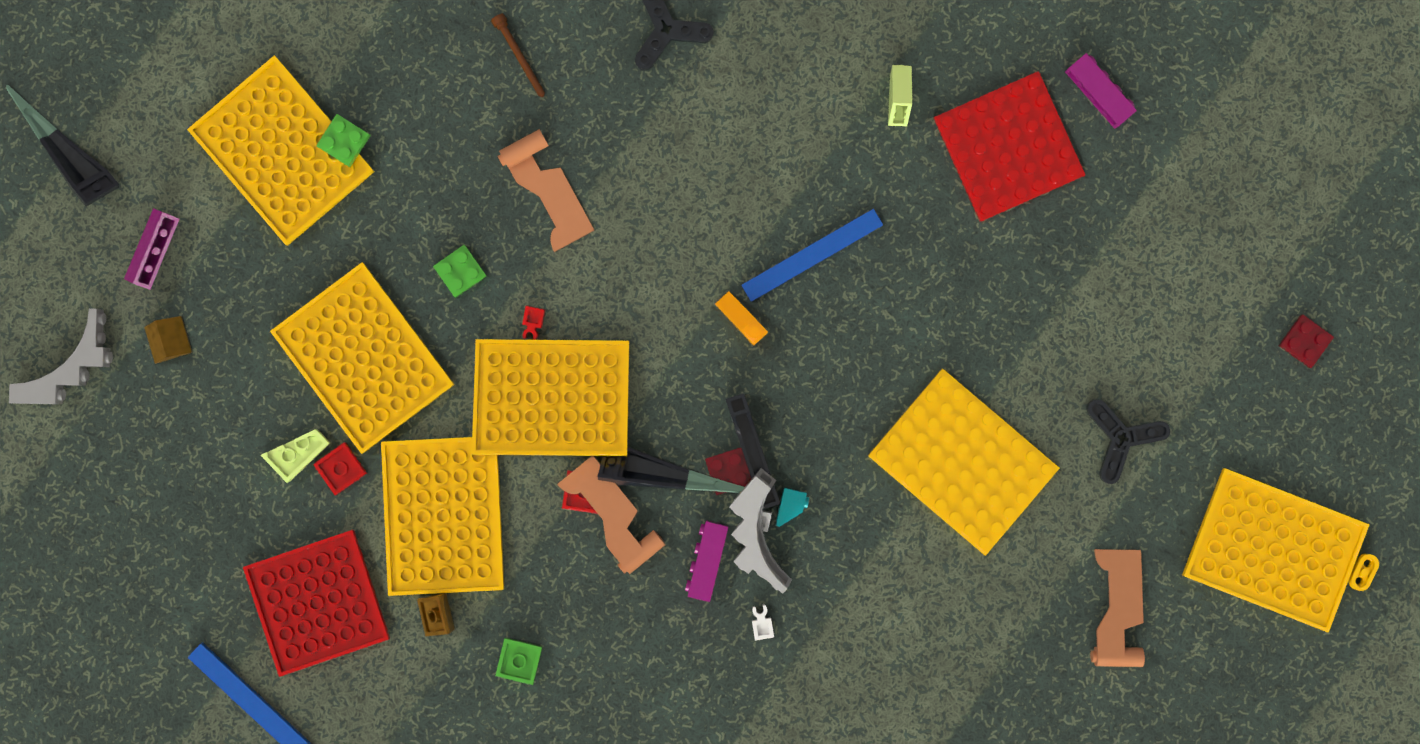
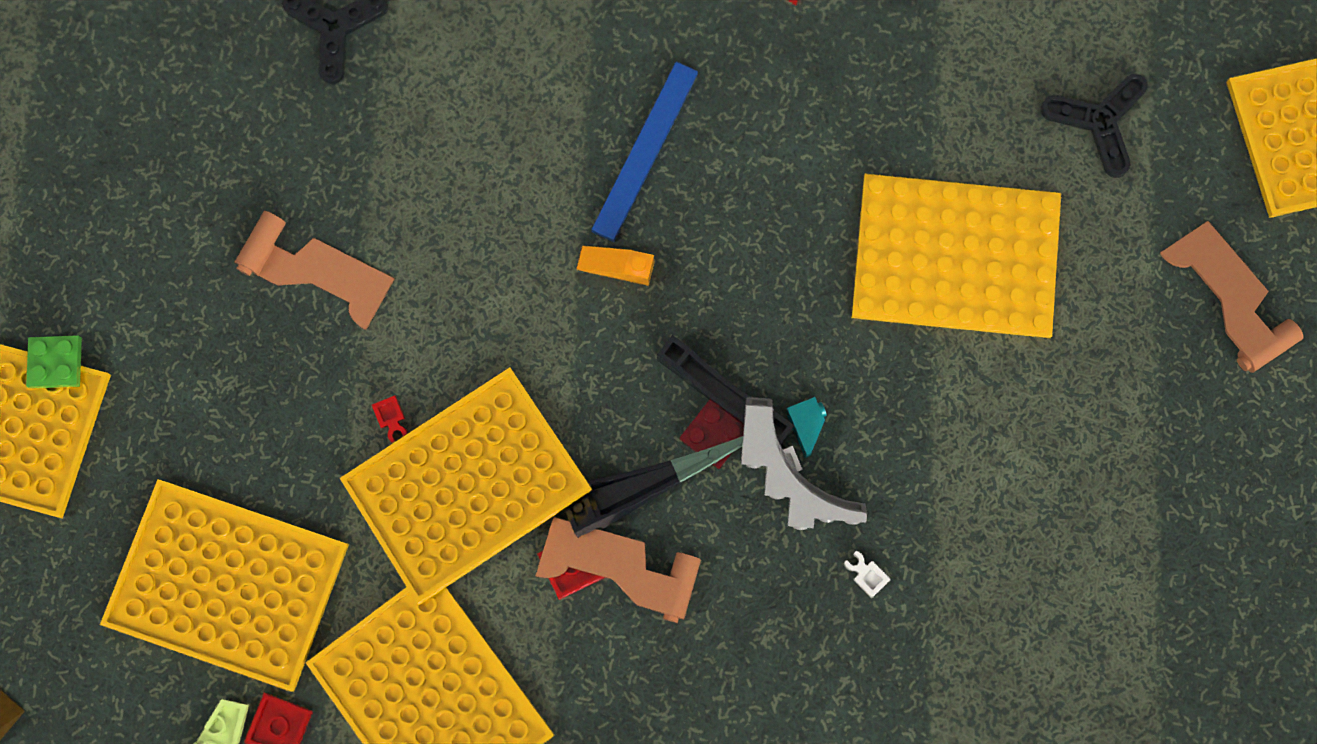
camera: 35 degrees left, 10 degrees down
(459, 271) = (274, 418): bright green plate -> none
(500, 23) = (150, 132): reddish brown piece -> none
(707, 560) = (759, 546): magenta brick -> none

